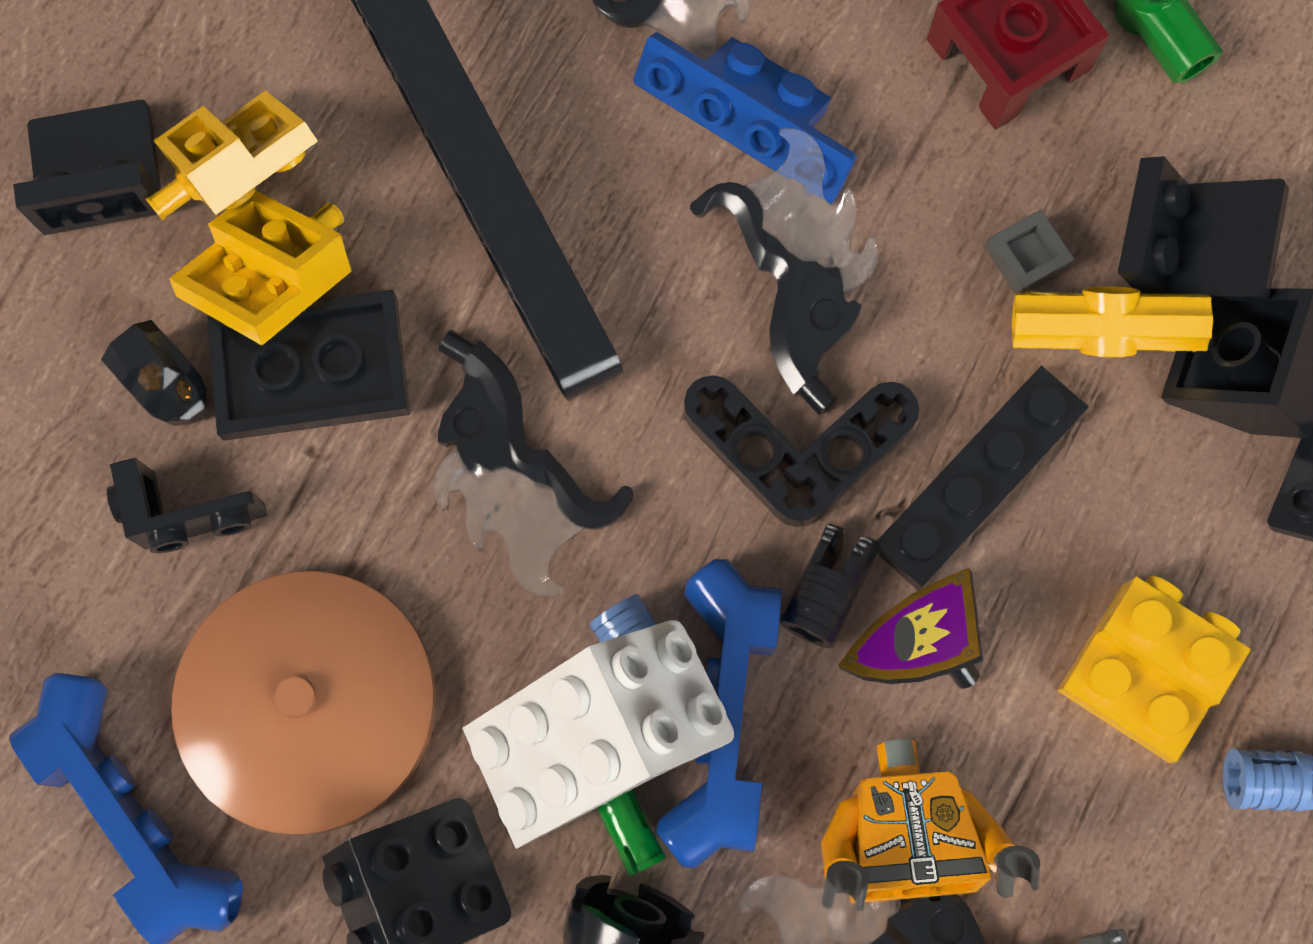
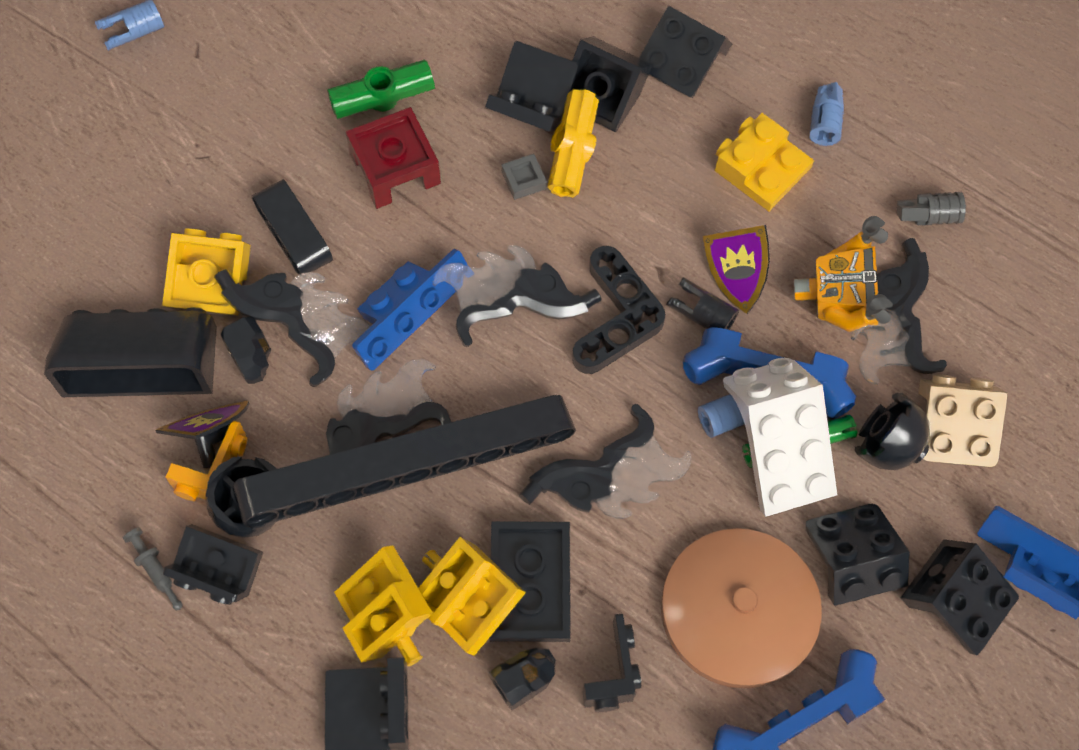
camera: 85 degrees left, 10 degrees down
(563, 104) = (384, 409): none -> piece
(979, 477) = (649, 225): black plate -> none

